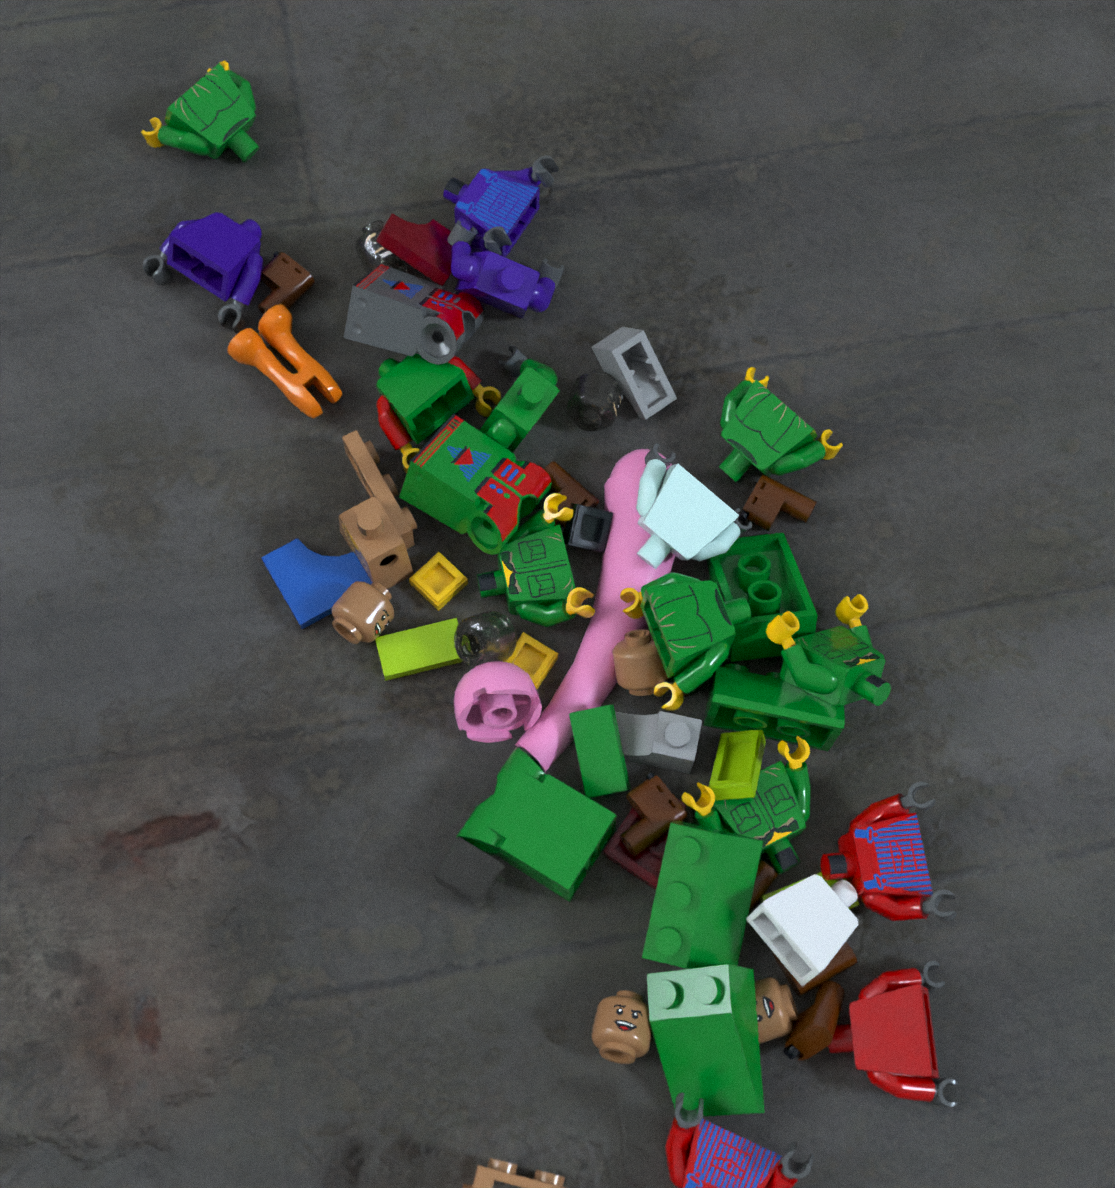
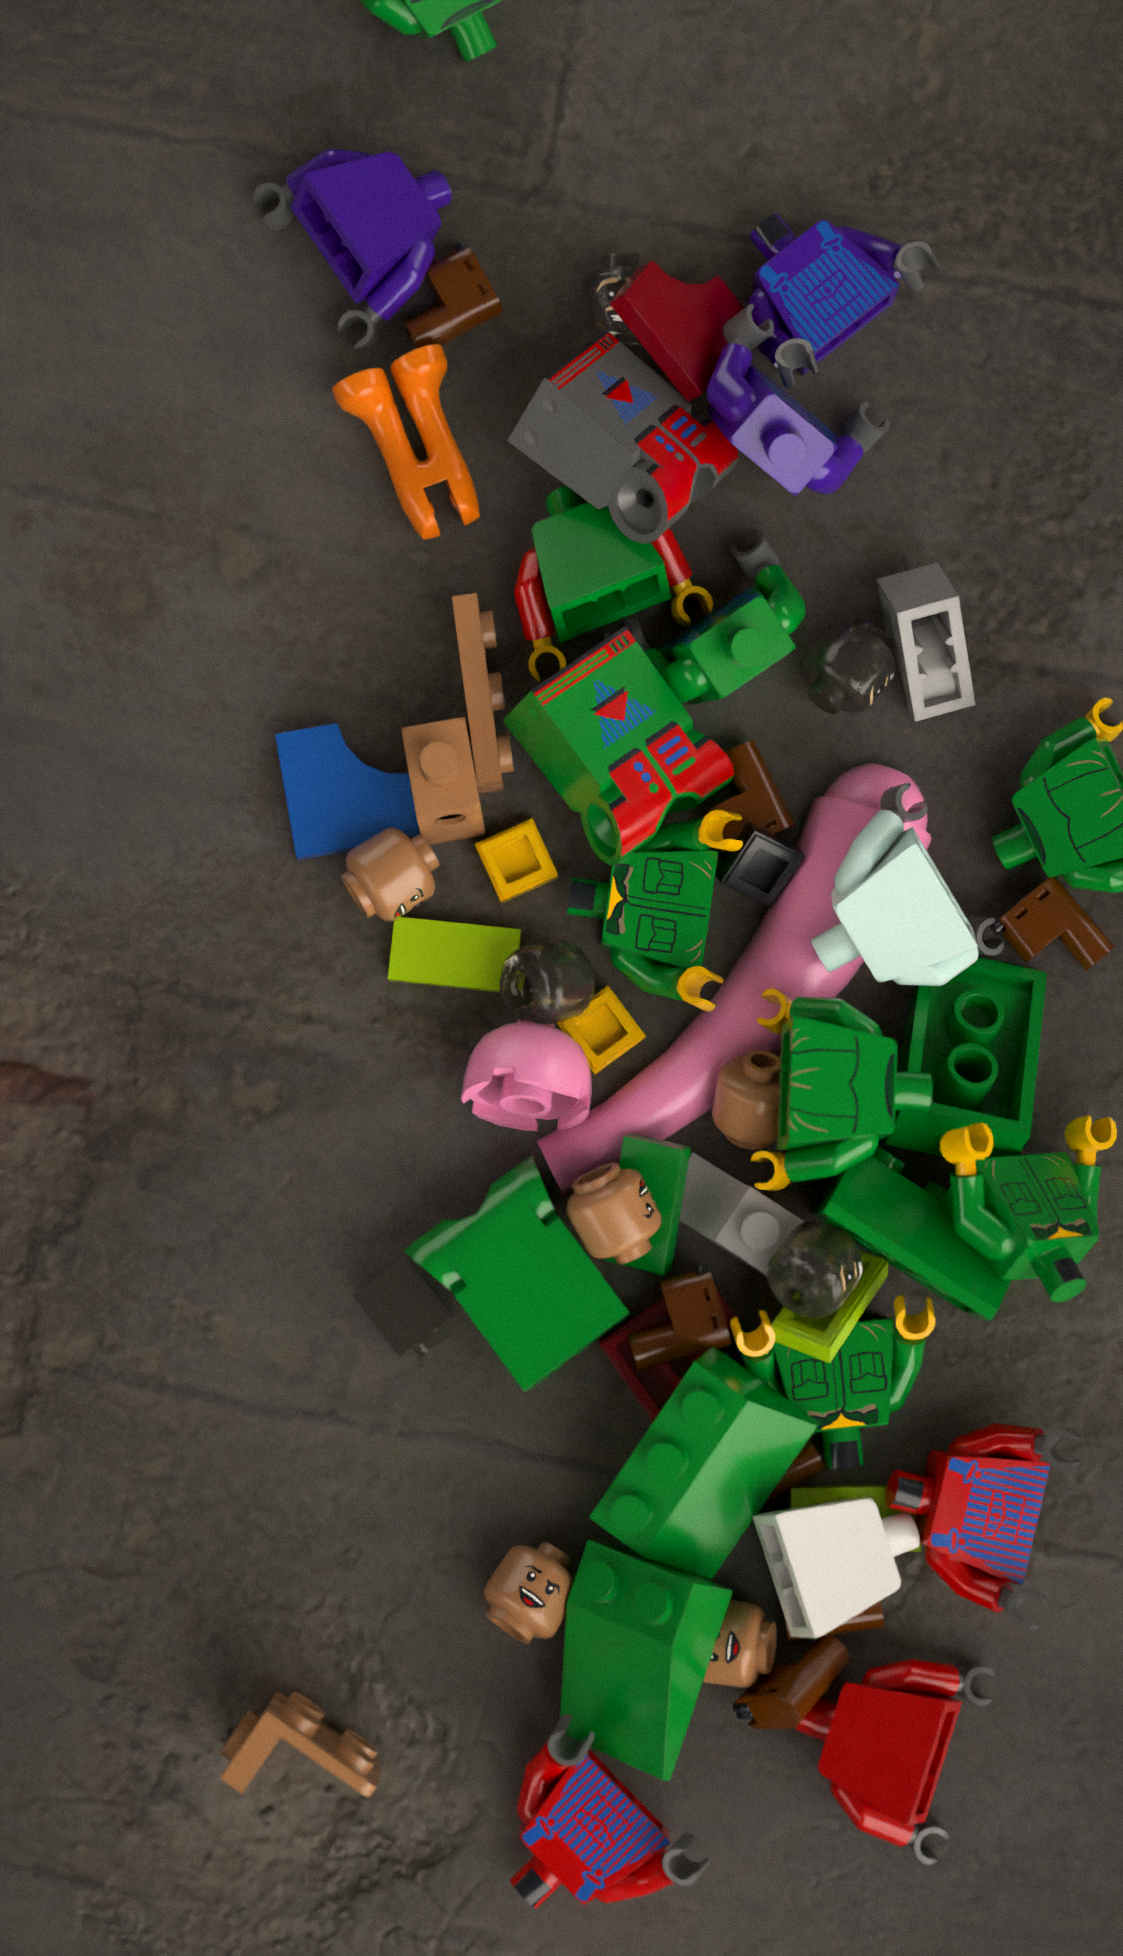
camera: 25 degrees right, 15 degrees up
(581, 759) = (613, 1213): none -> medium nougat head
(721, 744) = (814, 1265): none -> clear smoke head

